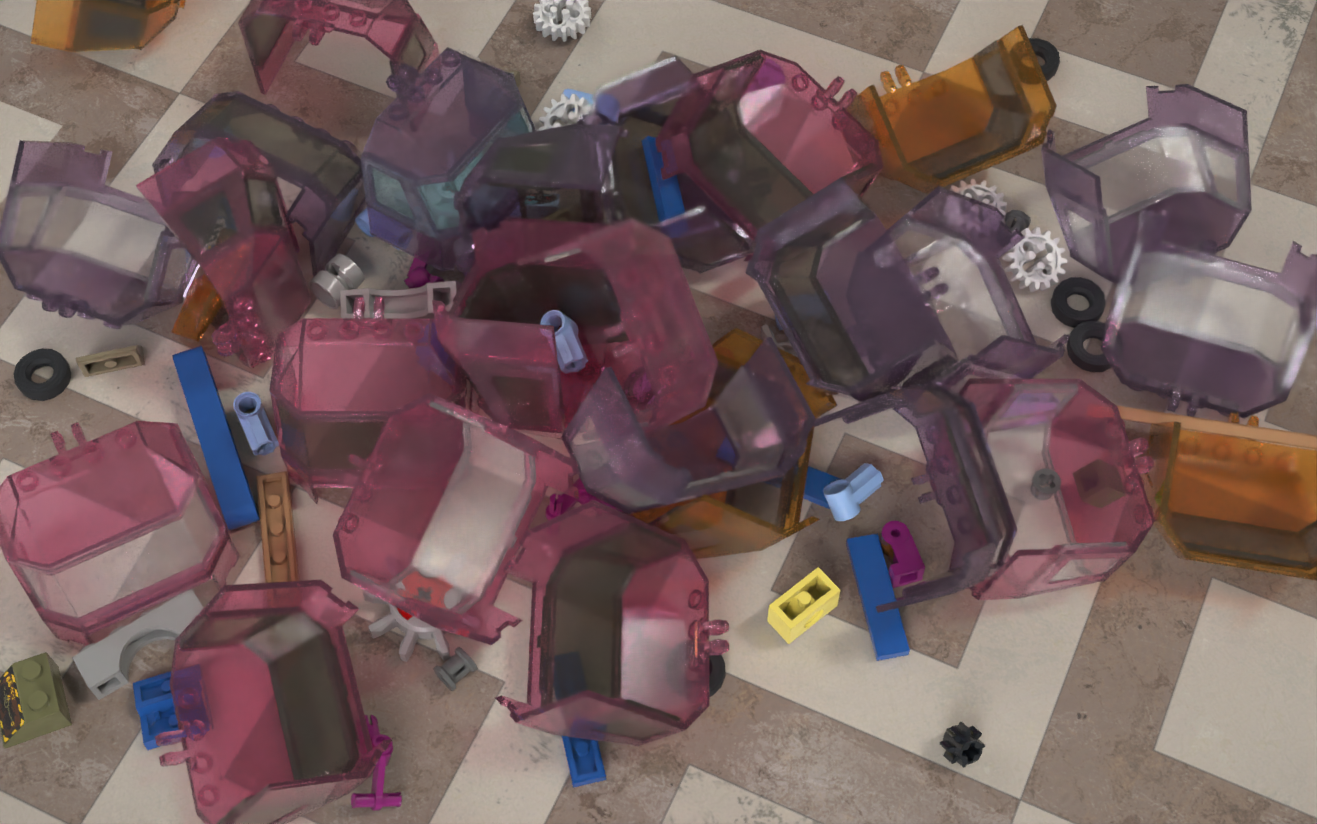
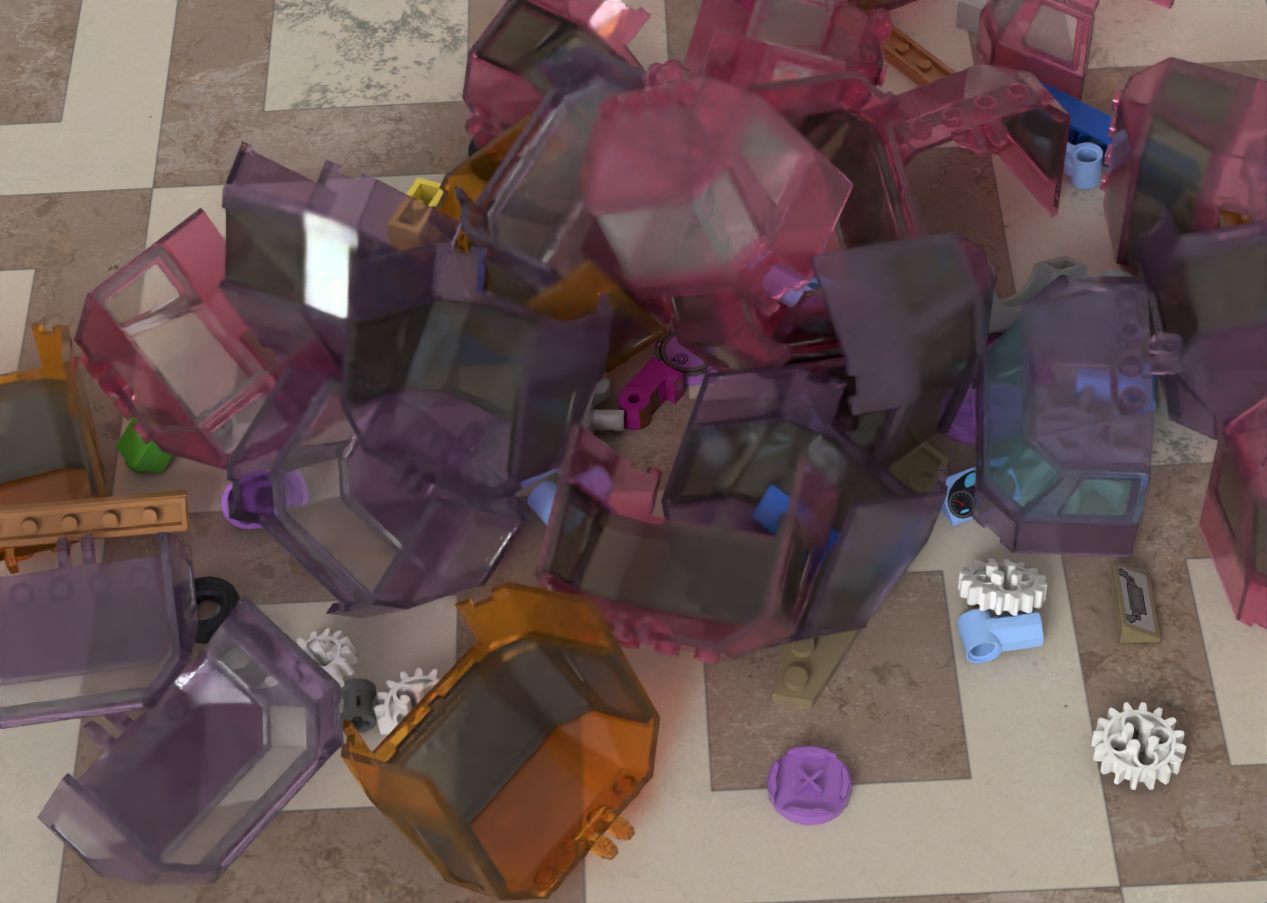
camera: 155 degrees right, 10 degrees down
(962, 744) = (213, 184): black gear -> none

